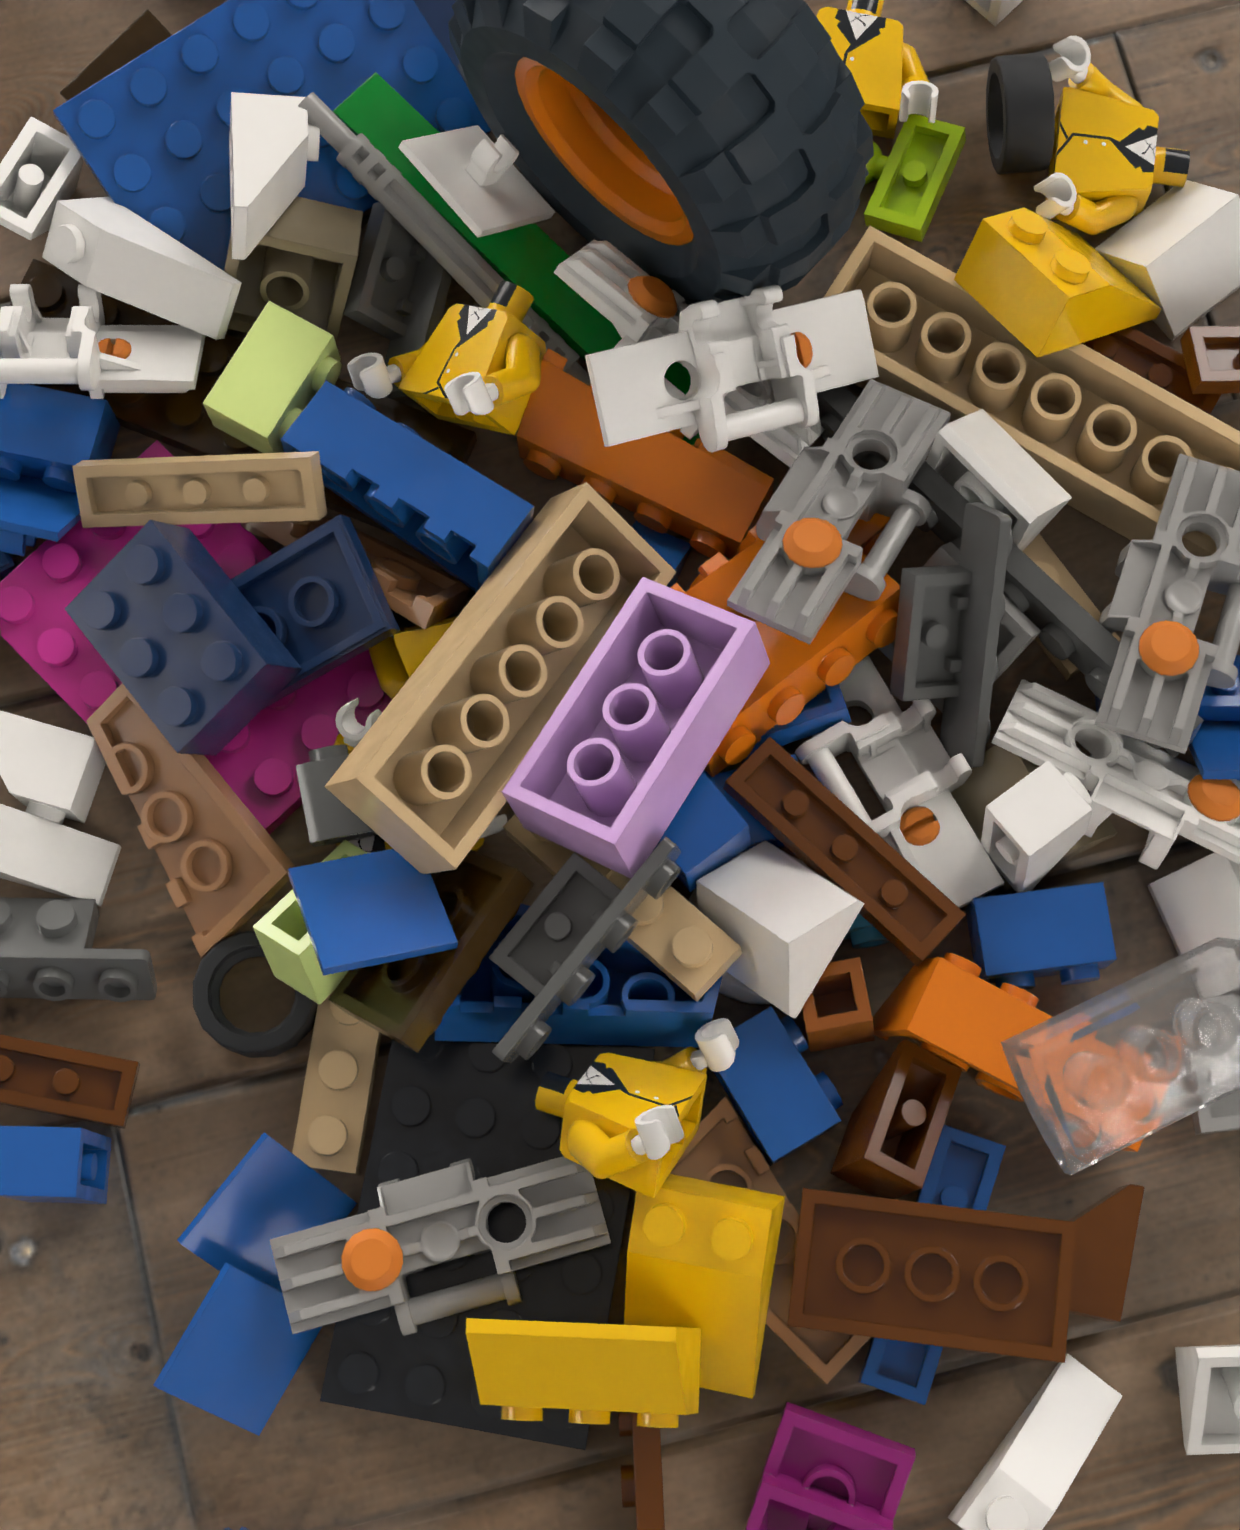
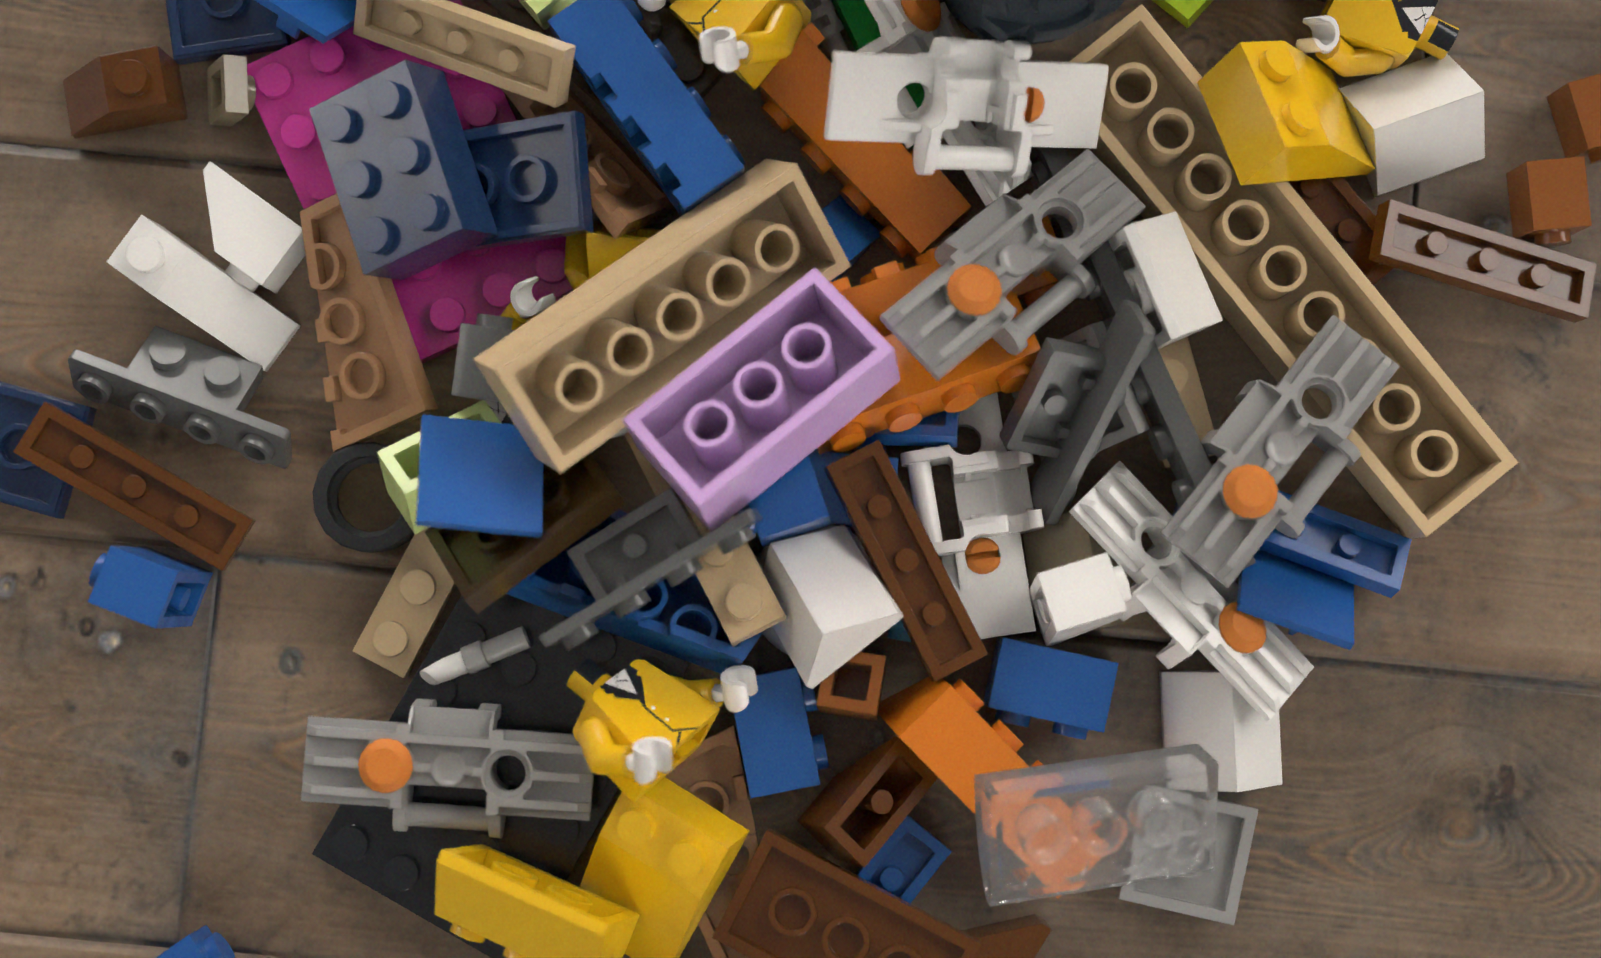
camera: 15 degrees right, 10 degrees up
(237, 1352) = (252, 793): blue piece -> none
(259, 1201) = (314, 680): blue piece -> none
(426, 1118) = (476, 656): none -> light grey piece

